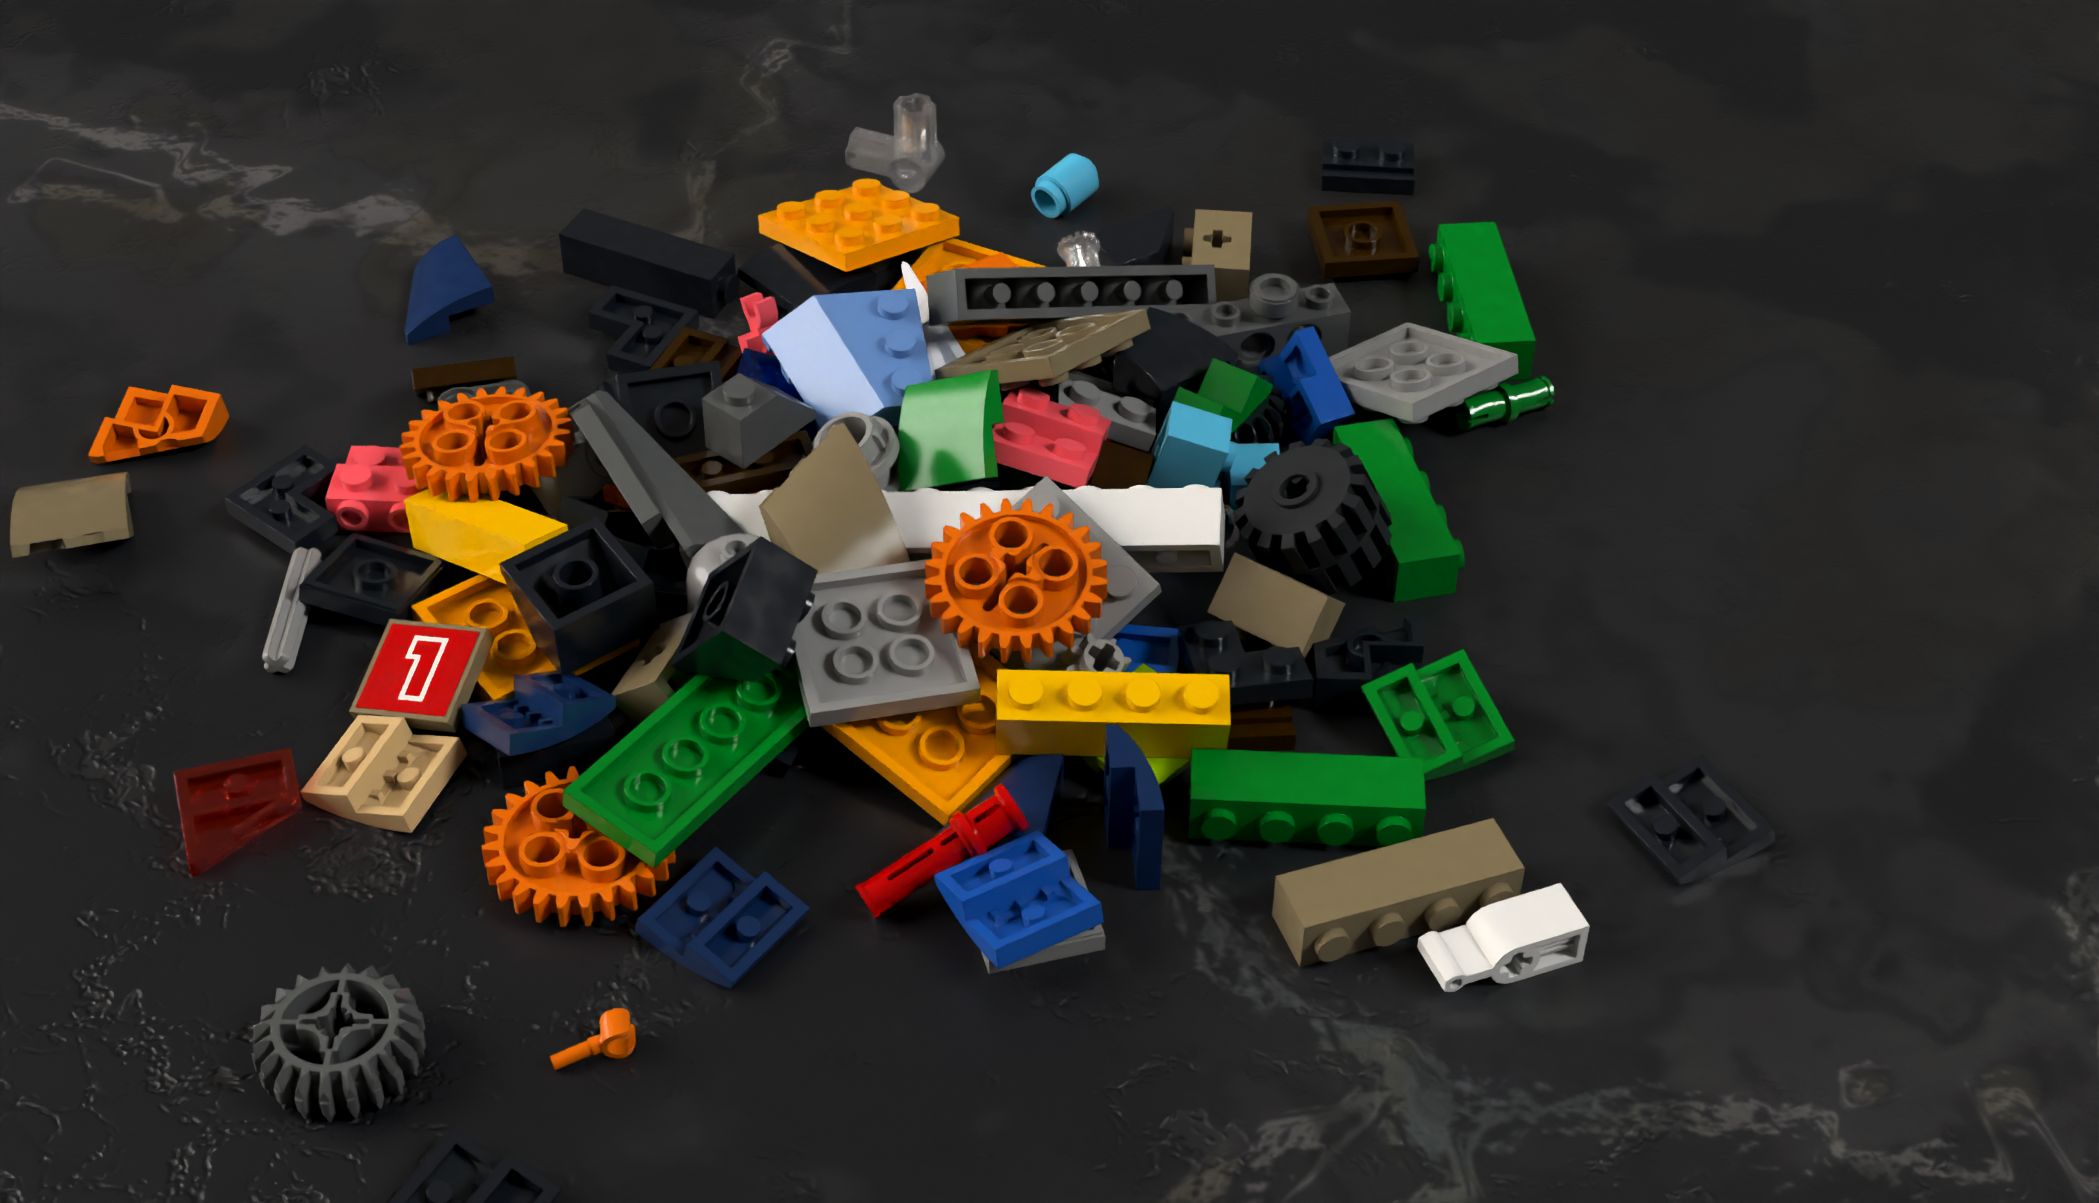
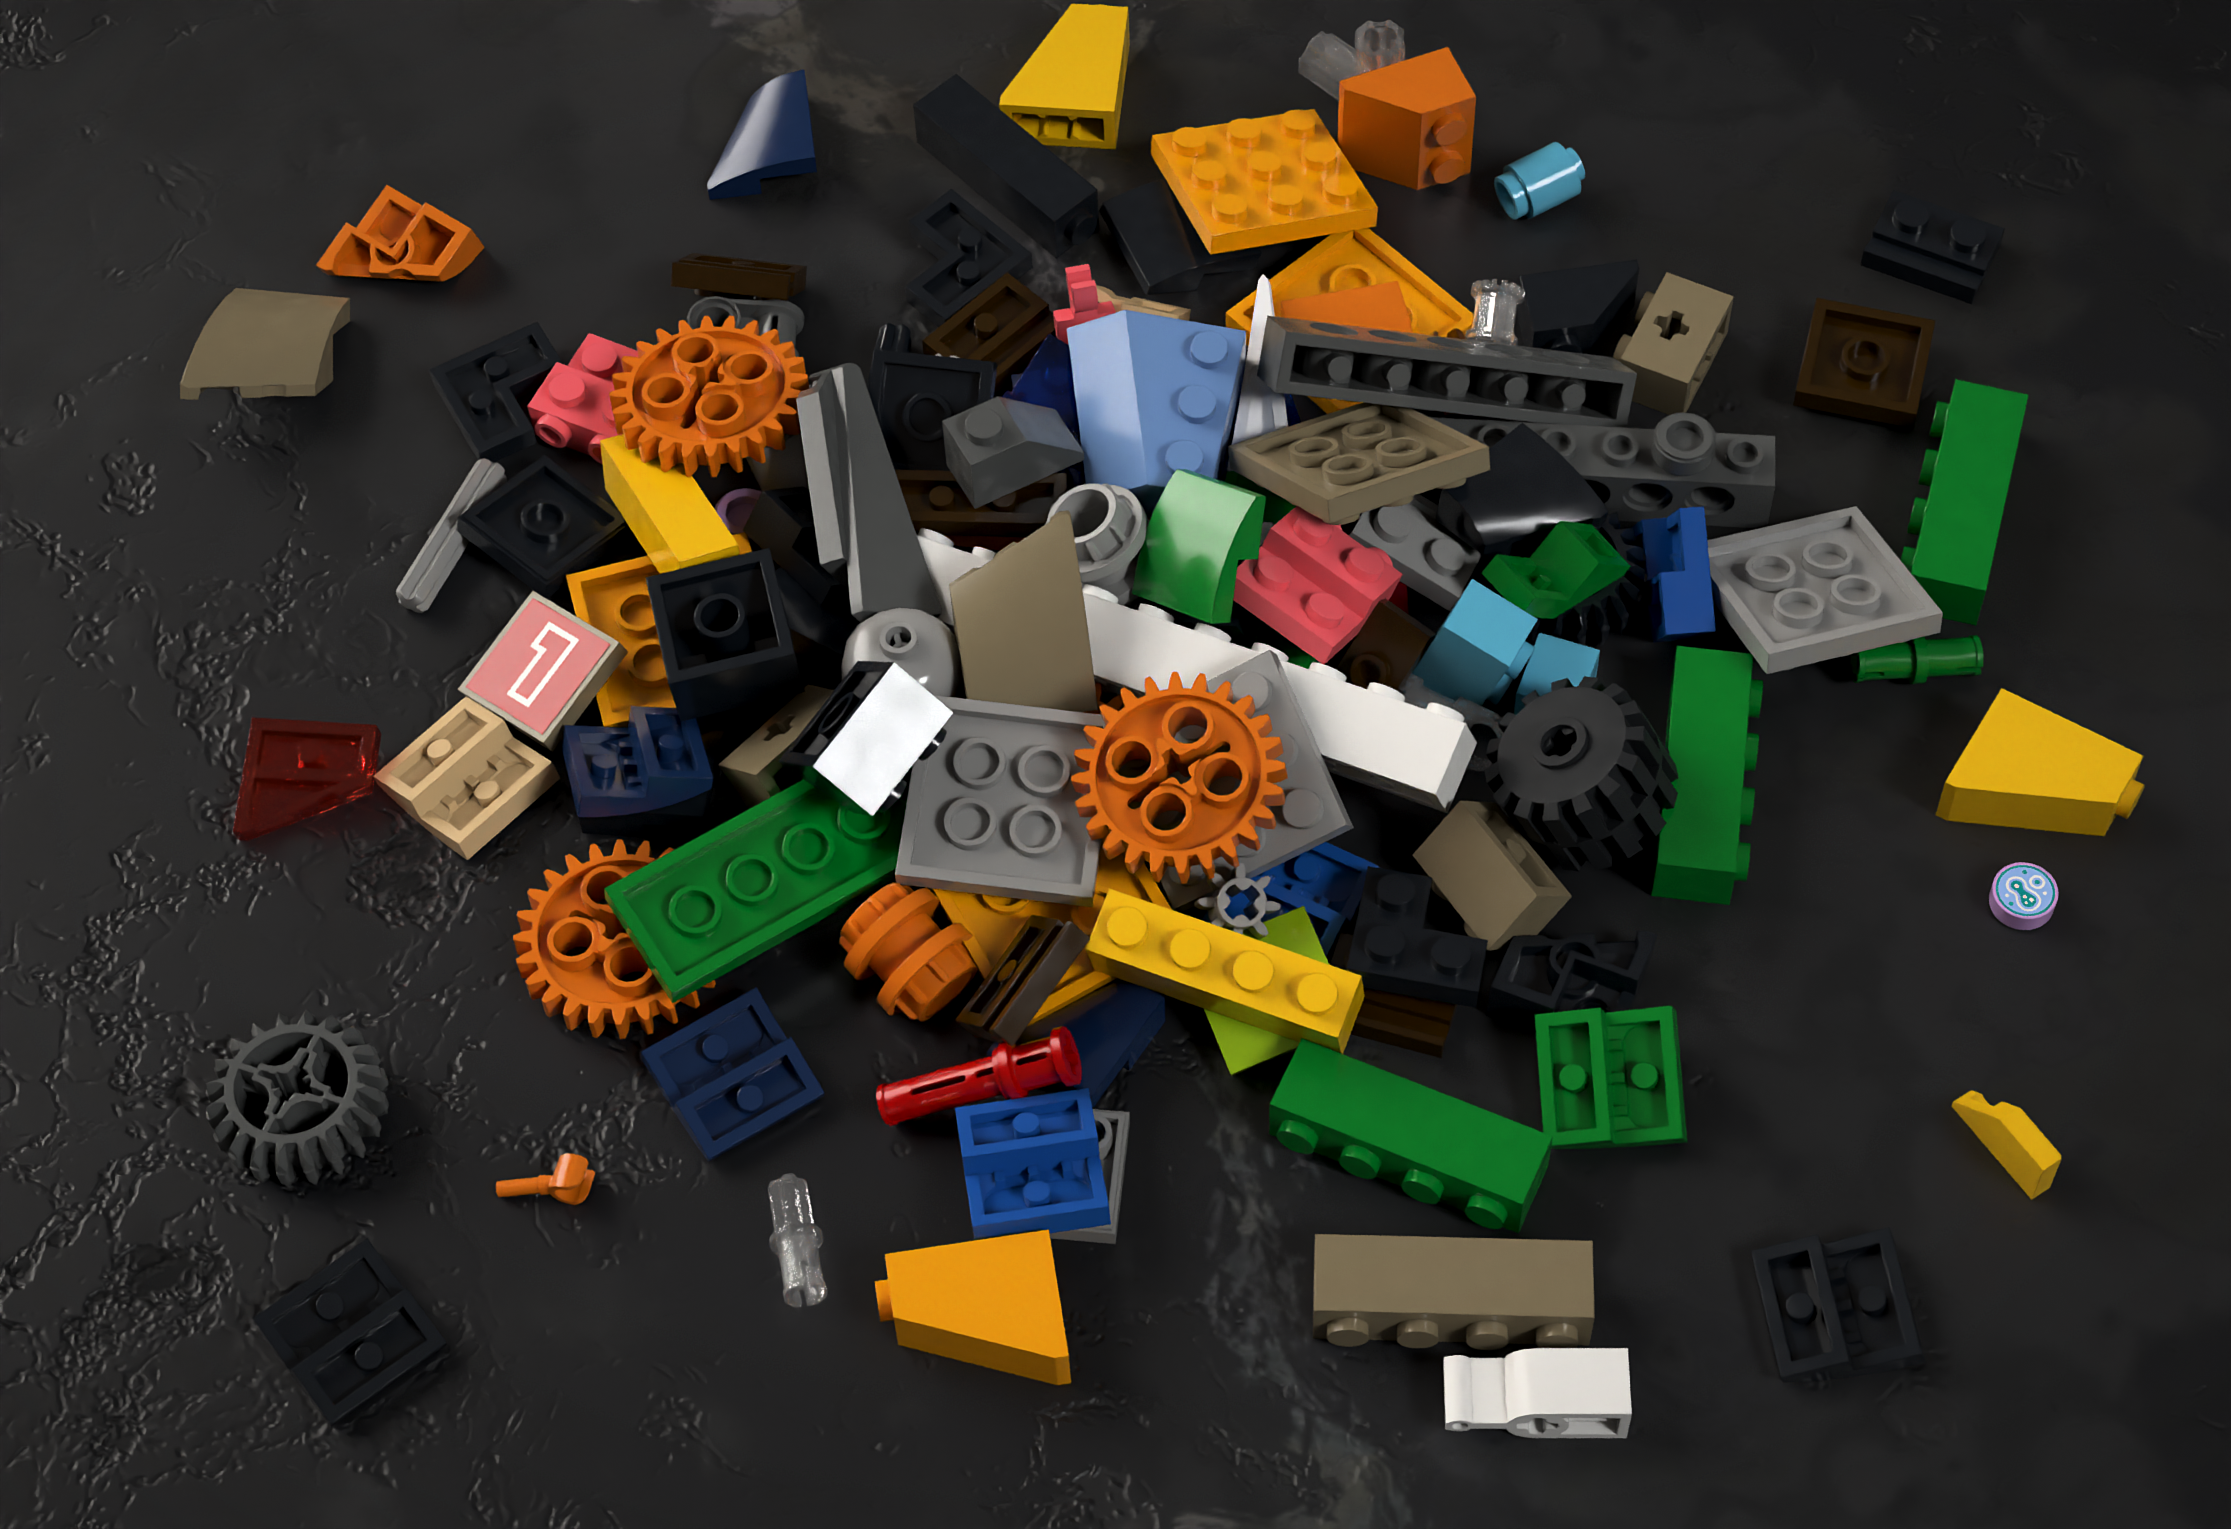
camera: 25 degrees right, 15 degrees up
(679, 195) = (1074, 80): none -> yellow slope
(836, 781) = (908, 951): none -> orange piece
(840, 1019) = (796, 1240): none -> clear axle
(949, 764) = (1022, 979): none -> dark brown plate
(956, 160) = (1409, 121): none -> orange slope
(1025, 1015) = (981, 1304): none -> light orange slope
(1133, 806) = (1199, 1094): dark blue slope -> none
(1636, 446) = (2040, 773): none -> yellow slope
(1665, 527) = (2023, 896): none -> tile
(1753, 676) = (2012, 1141): none -> yellow tile

